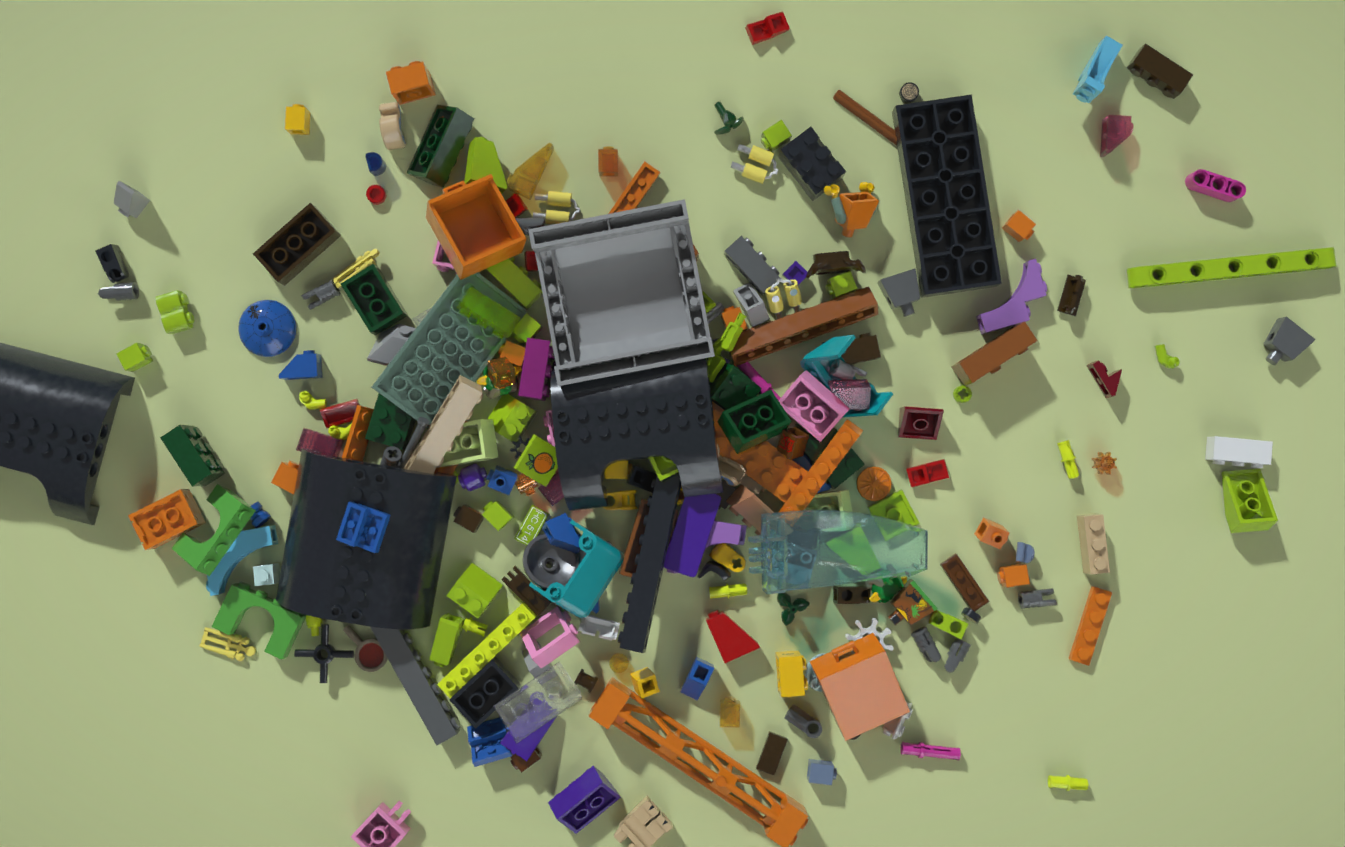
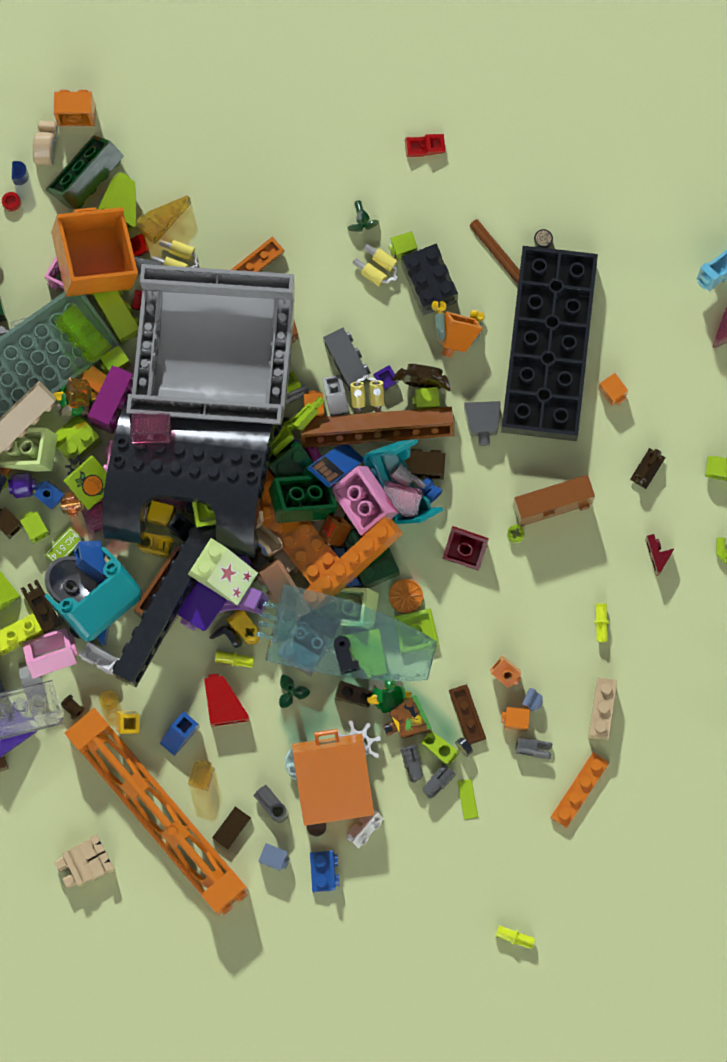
camera: 20 degrees right, 10 degrees down
(584, 800) = (36, 821): dark purple slope -> none
(587, 395) = (151, 428): none -> clear pink brick
(608, 161) = (238, 228): clear orange brick -> none
(697, 517) = (223, 572): none -> yellowish green slope
(774, 376) = (336, 464): none -> blue piece
(790, 673) = (270, 751): yellow brick -> none
(834, 558) = (342, 649): none -> black leg
(870, 770) = (323, 871): none -> blue bracket
(875, 374) = (431, 490): none -> blue wheel
(927, 473) = (460, 599): red slope -> none
(930, 751) = (383, 866): dark pink pin -> none
(986, 662) = (467, 799): none -> lime sticker
(1014, 309) = (606, 452): medium lavender arch -> none
(1108, 466) = (631, 640): clear orange gear -> none

